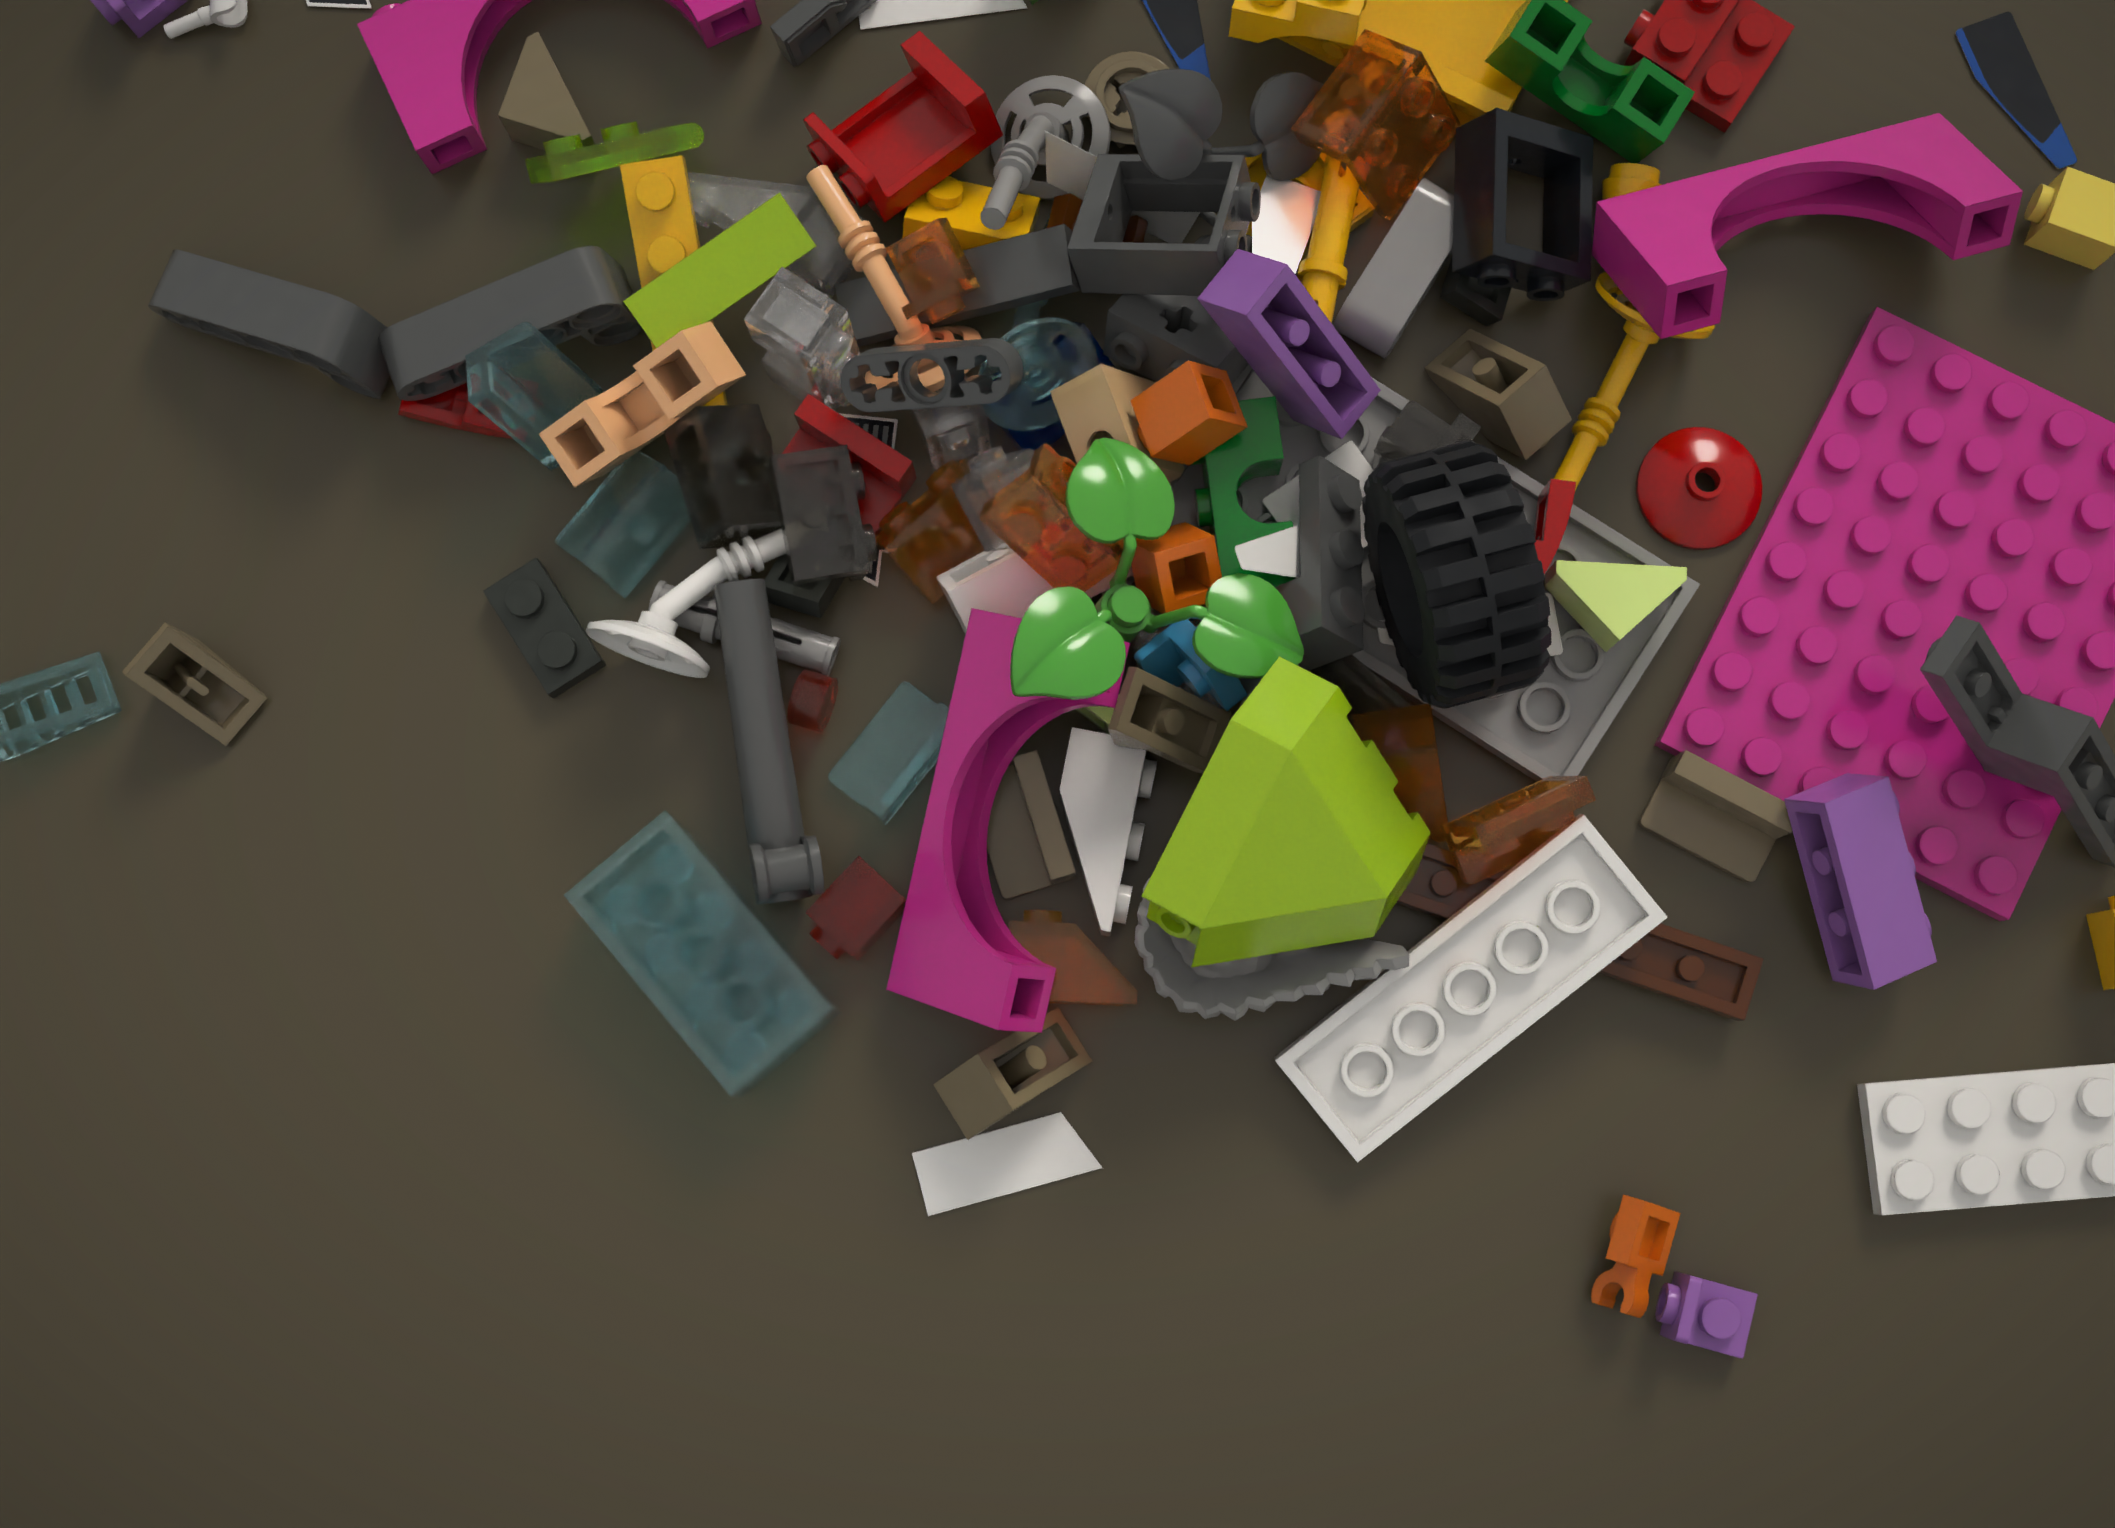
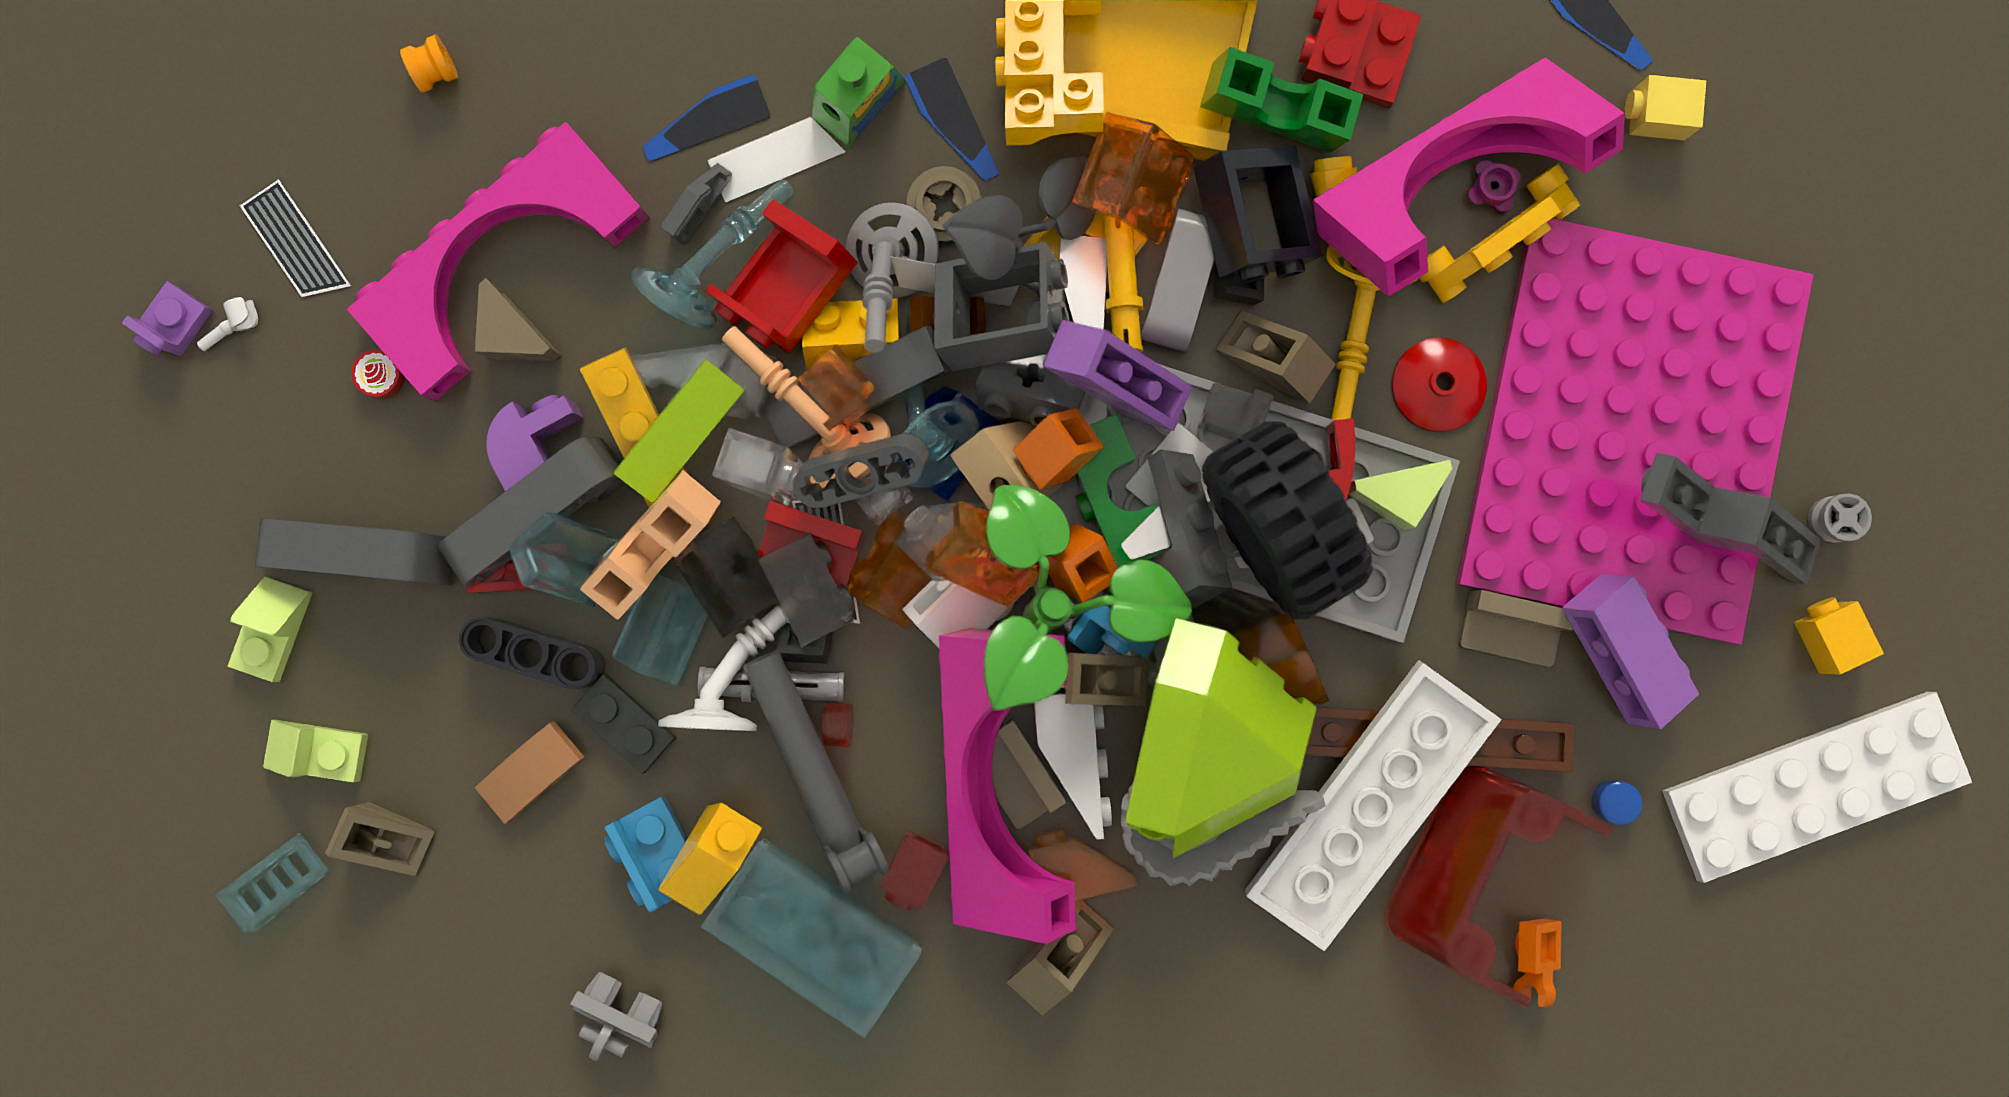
camera: 20 degrees left, 5 degrees up
(143, 391) = (269, 628): none -> yellowish green slope
(152, 556) = (315, 751): none -> yellowish green slope
(370, 120) = (376, 375): none -> tile
(404, 971) = (597, 1005): none -> light grey hips
(408, 652) = (529, 772): none -> medium nougat slope
(437, 485) = (510, 647): none -> black beam
(521, 235) = (517, 437): none -> medium lavender brick
(534, 801) = (647, 846): none -> dark azure bracket
(601, 817) = (709, 857): none -> yellow slope
(620, 145) = (573, 352): clear neon green hinge -> none
(775, 104) = (683, 282): none -> clear light blue dish
(892, 752) = (906, 744): clear light blue panel -> none
(1001, 1163) = (1071, 1020): white sticker -> none
(1514, 825) = (1374, 679): clear orange bracket -> none
(1560, 1087) = (1456, 861): none -> clear red windscreen
(1705, 1314) = (1597, 987): medium lavender bracket -> none
(1793, 1079) = (1617, 802): none -> blue piece
(1846, 246) = (1504, 176): none -> magenta plate
(1901, 291) = (1552, 201): none -> yellow plate

